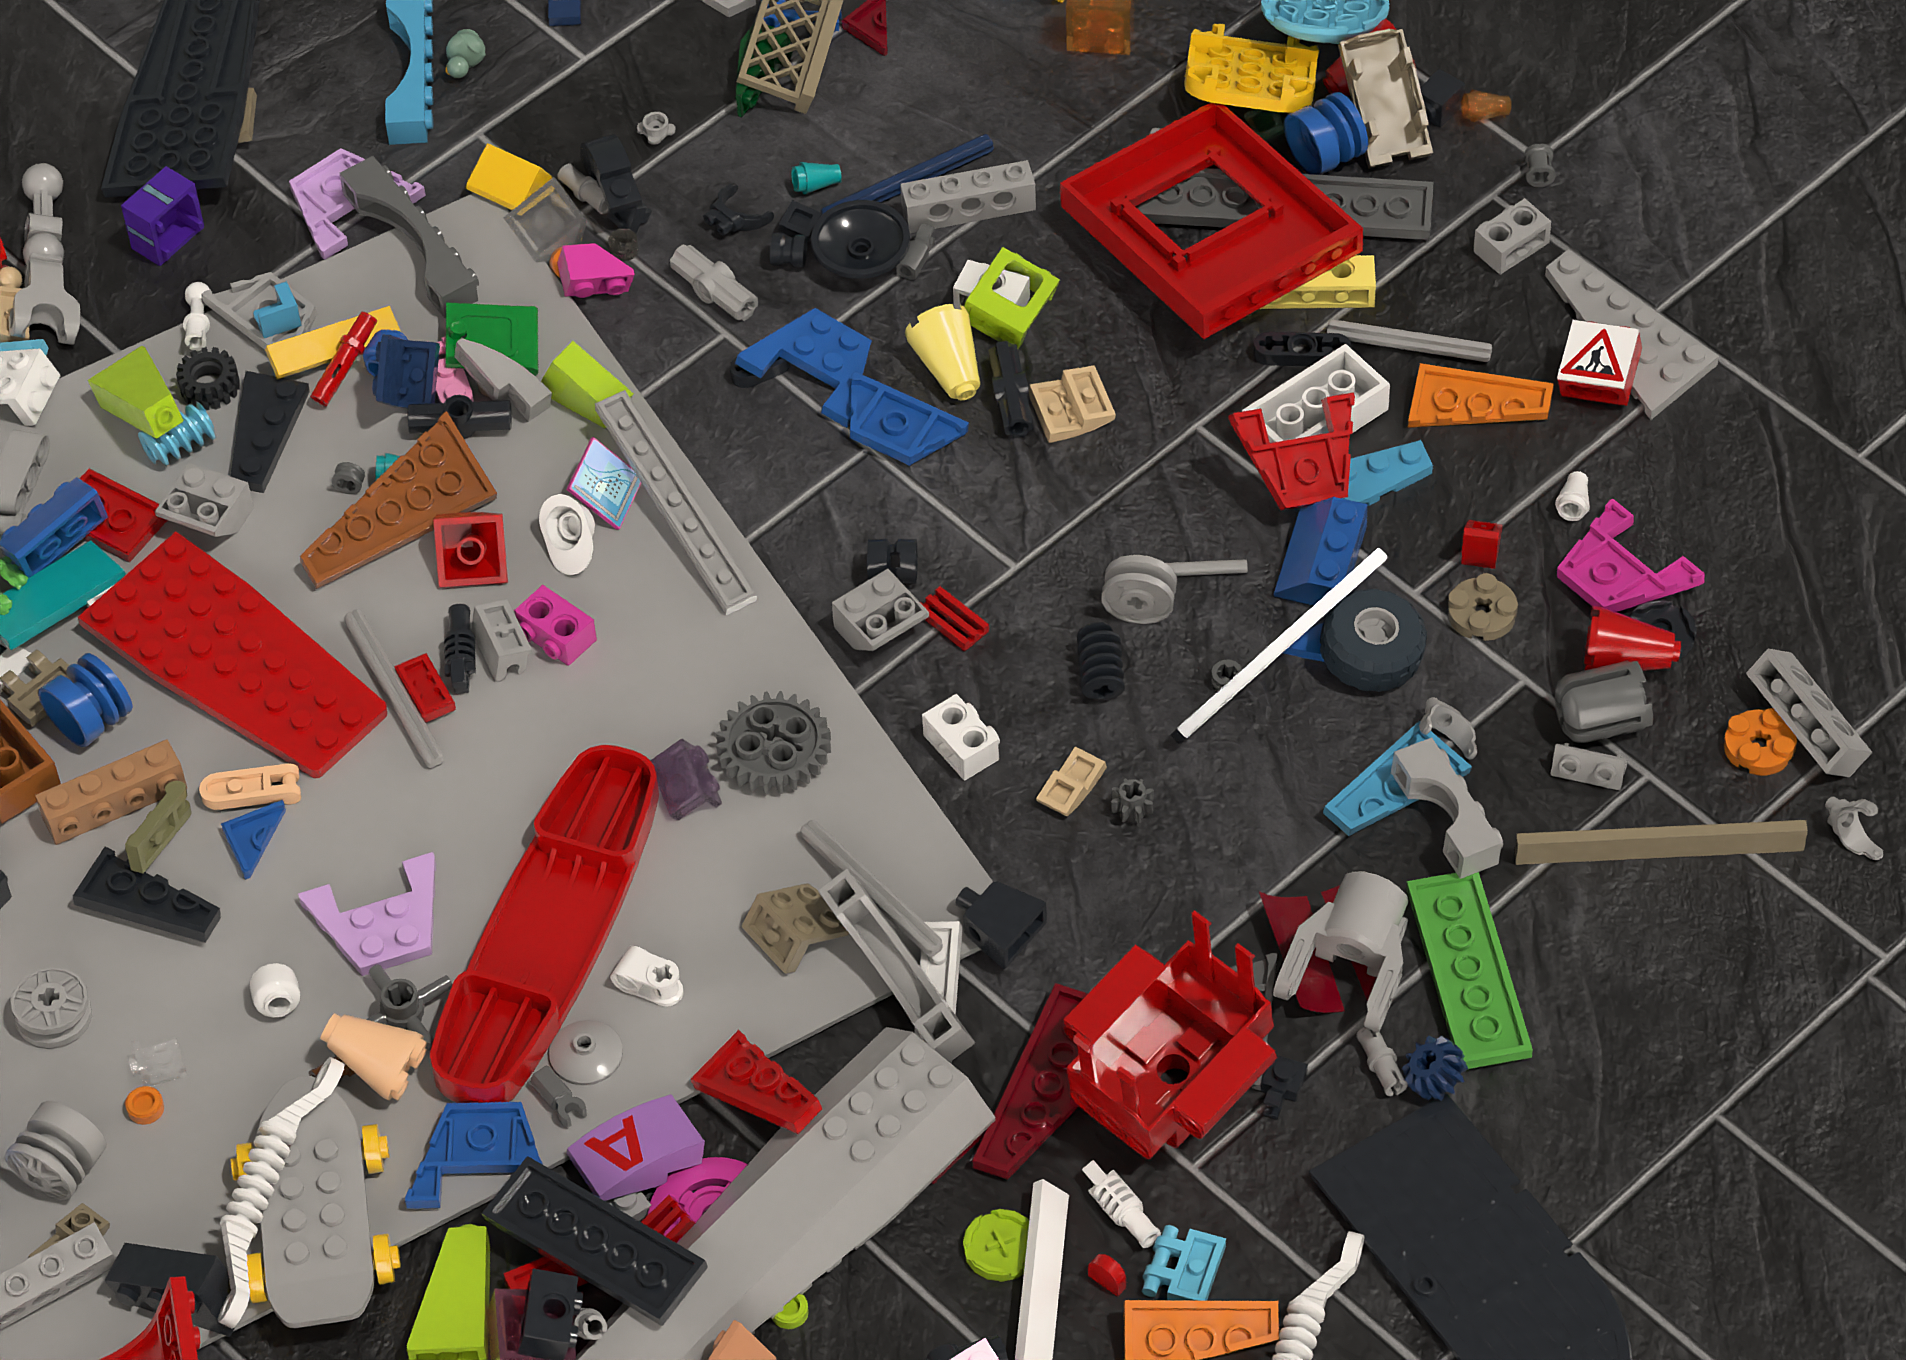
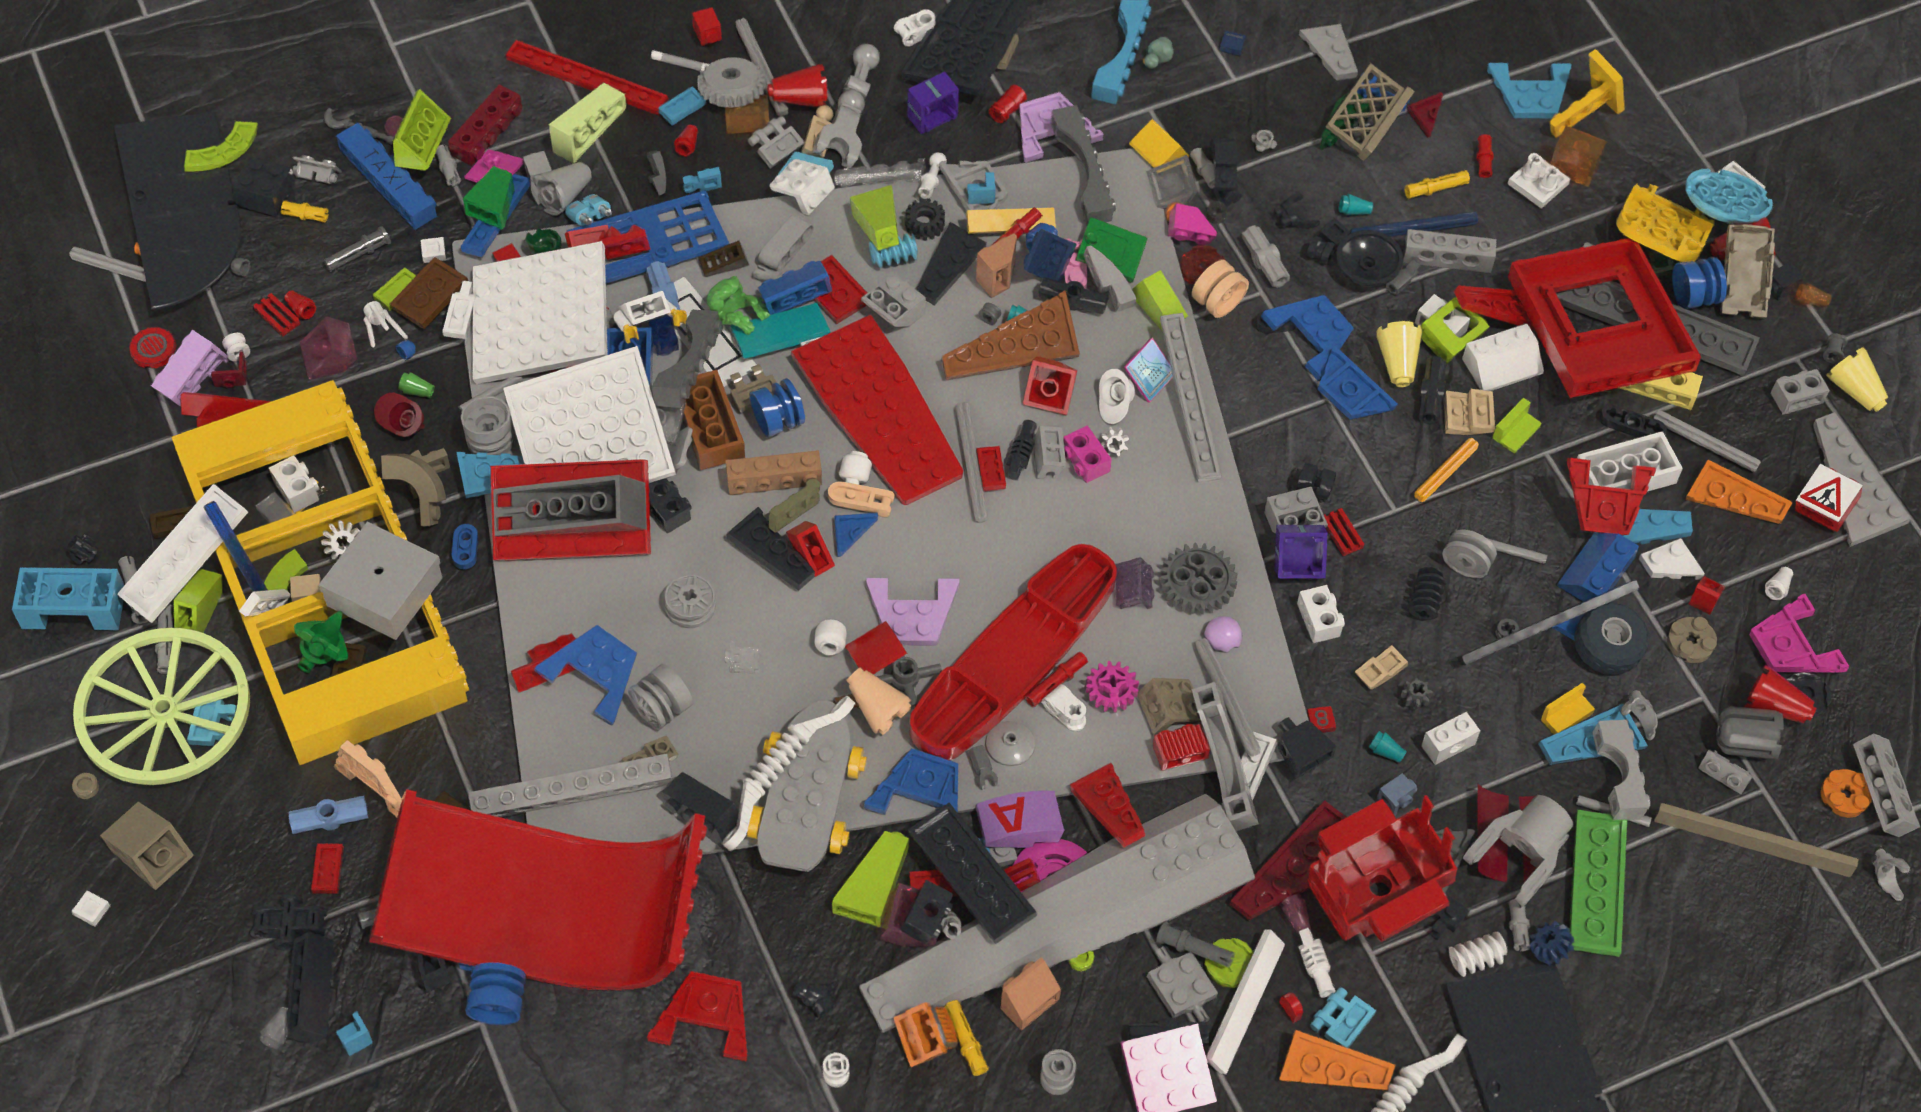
camera: 15 degrees right, 5 degrees up
(100, 120) = (915, 26): none -> white piece
(119, 335) = (881, 172): none -> clear wing
(144, 1105) = (726, 684): orange tile -> none
(201, 873) = (811, 546): none -> red slope
(228, 748) = (855, 468): none -> white head
(271, 186) = (1008, 103): none -> red piece
(335, 409) = (996, 265): none -> nougat slope
(347, 983) = (876, 648): none -> red slope
(598, 594) = (1120, 441): none -> white gear
(628, 931) = (1064, 673): none -> red pin
(630, 337) = (1193, 259): none -> clear red plate
(665, 343) = (1220, 288): none -> light nougat wheel
(703, 927) = (1122, 682): none -> dark pink gear
(829, 976) = (1181, 746): none -> red brick
(835, 805) = (1223, 633): none -> lavender hair
(904, 660) = (1300, 551): none -> dark purple container
(909, 119) = (1428, 186): none -> yellow pin
(925, 1236) = (1184, 941): none -> dark grey pin
(944, 1297) = (1182, 984): none -> light grey plate
(972, 56) = (1485, 156): none -> red pin
(1014, 874) = (1322, 718): none -> red tile
(1055, 246) = (1494, 303): none -> red wing
(1058, 66) = (1538, 180): none -> white plate
(1067, 490) = (1446, 469): none -> light orange axle
(1068, 1144) = (1296, 912): none -> clear pink cone
(1094, 316) = (1503, 358): none -> white slope
(1117, 885) = (1385, 746): none -> teal cone
(1144, 403) = (1516, 427): none -> lime panel
(1155, 936) = (1397, 793): none -> sand blue brick
(1200, 843) = (1450, 738): none -> white brick
(1338, 1115) = (1477, 953): none -> white piece
(1346, 755) = (1567, 710): none -> yellow panel
(1415, 869) = (1605, 808): none -> light grey bar
(1418, 514) = (1671, 561): none -> white wing
(1587, 196) = (1860, 380): none -> light yellow cone

